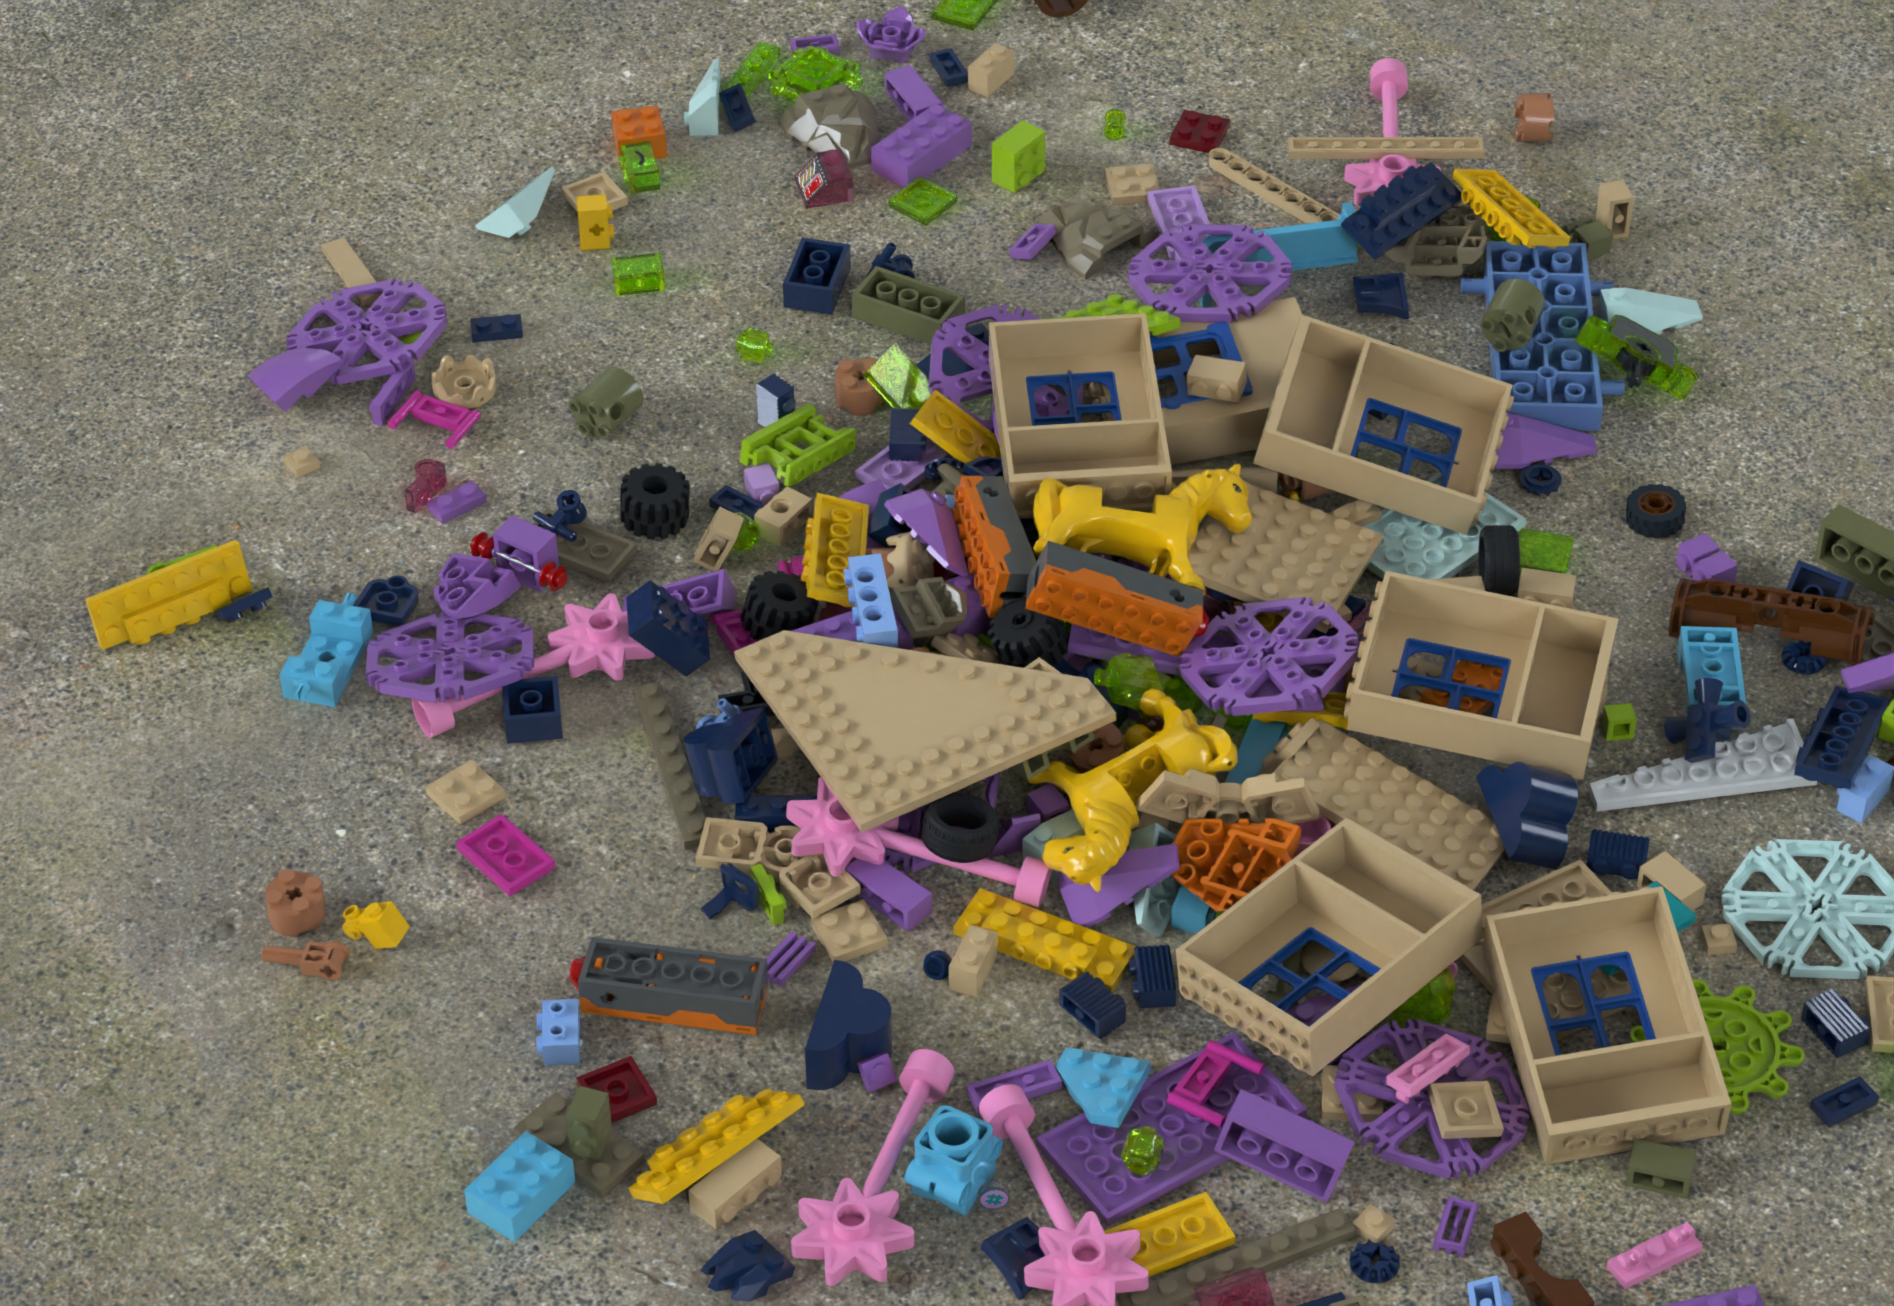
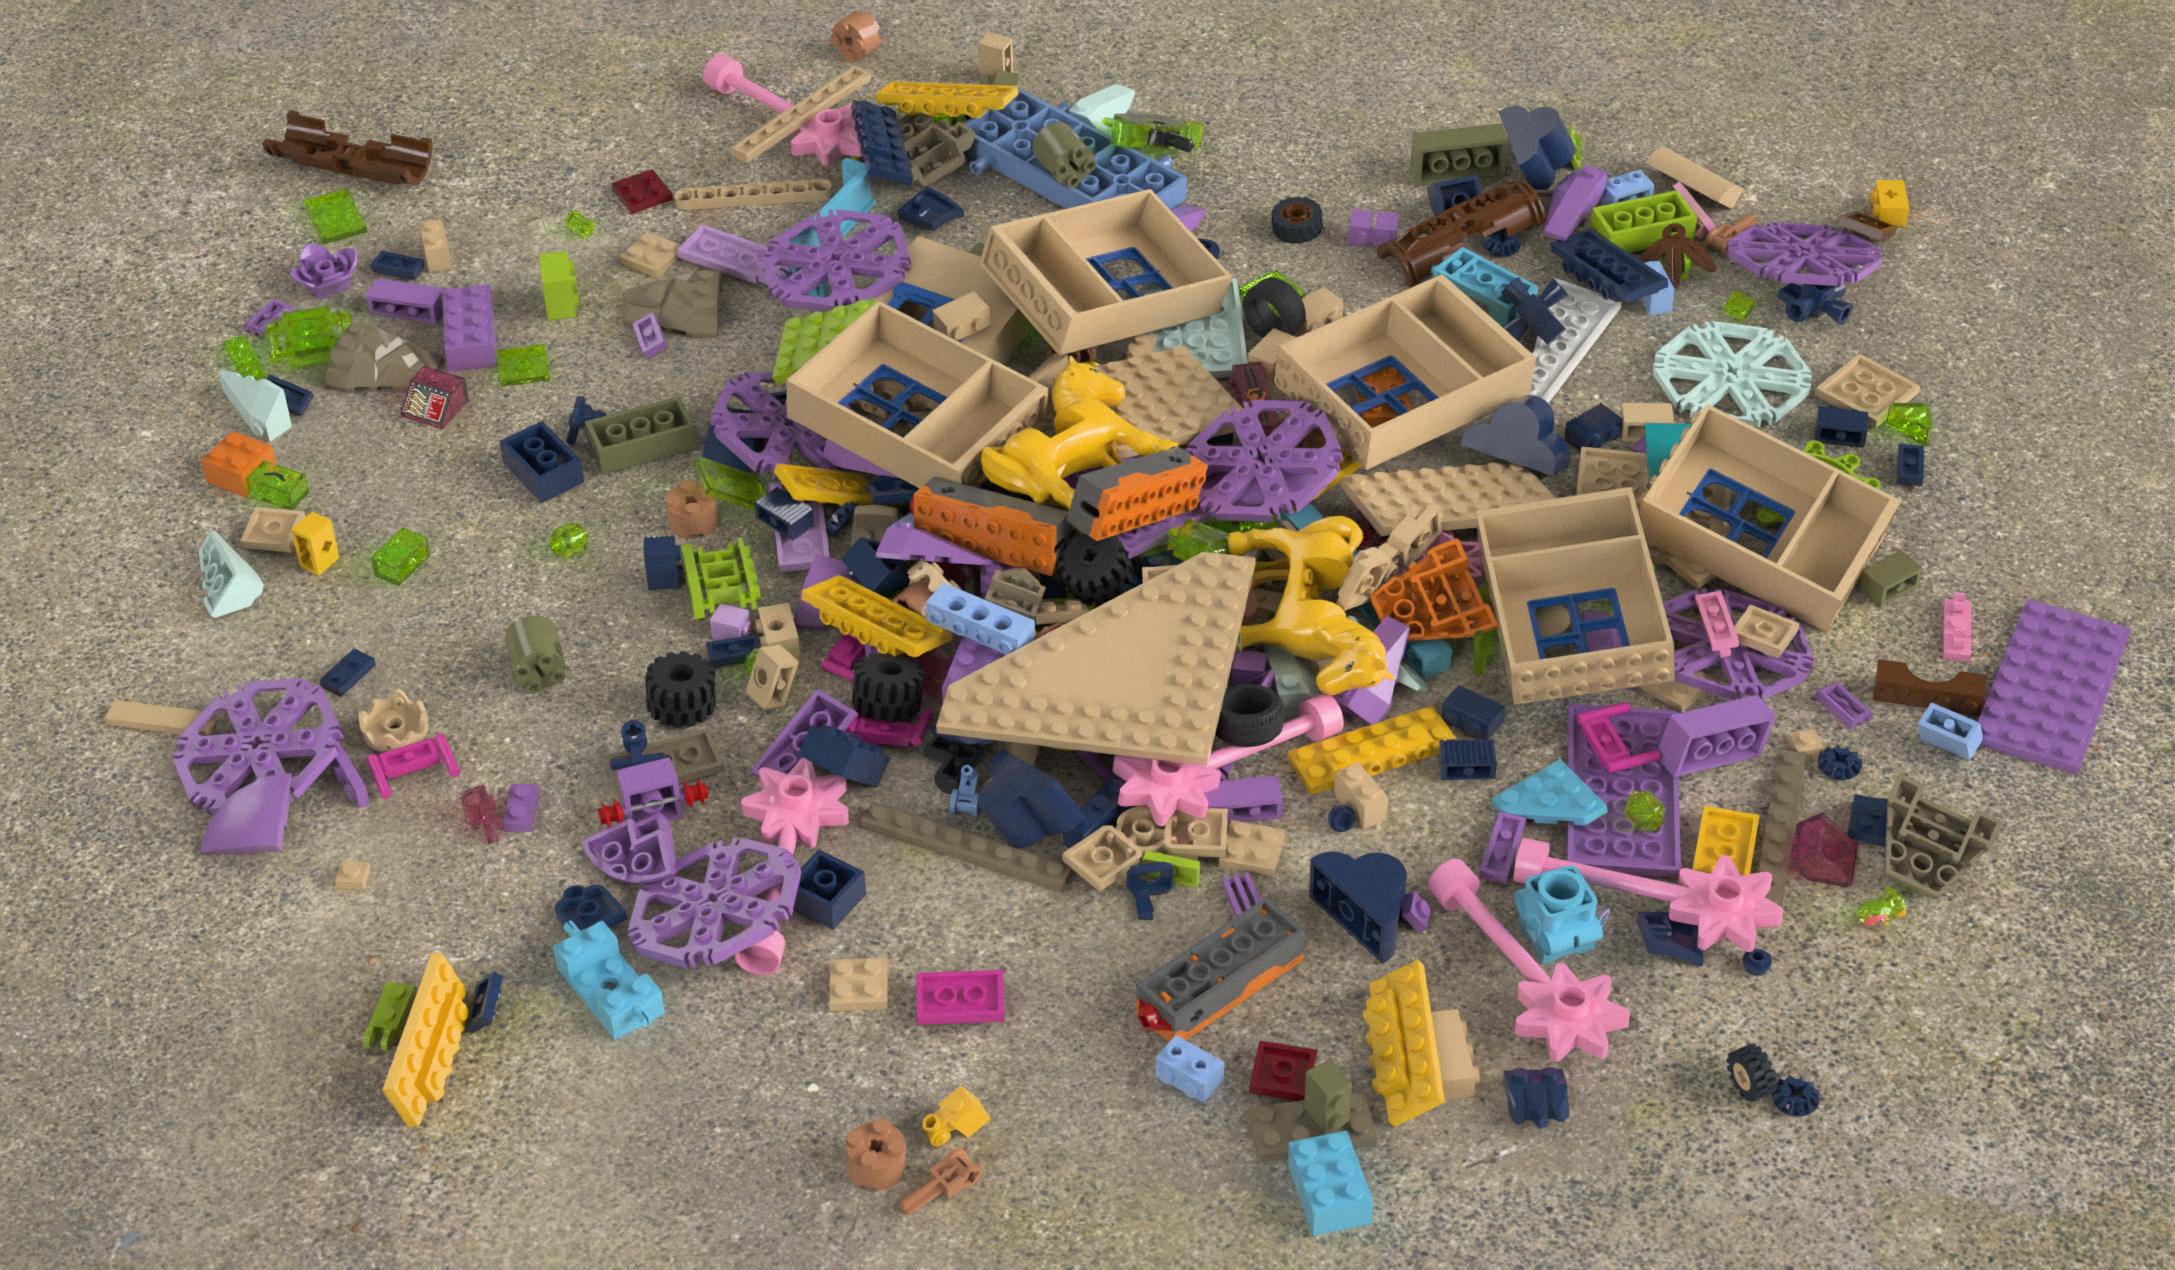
camera: 50 degrees left, 0 degrees up
(1288, 746) = (1353, 502): tan plate -> none

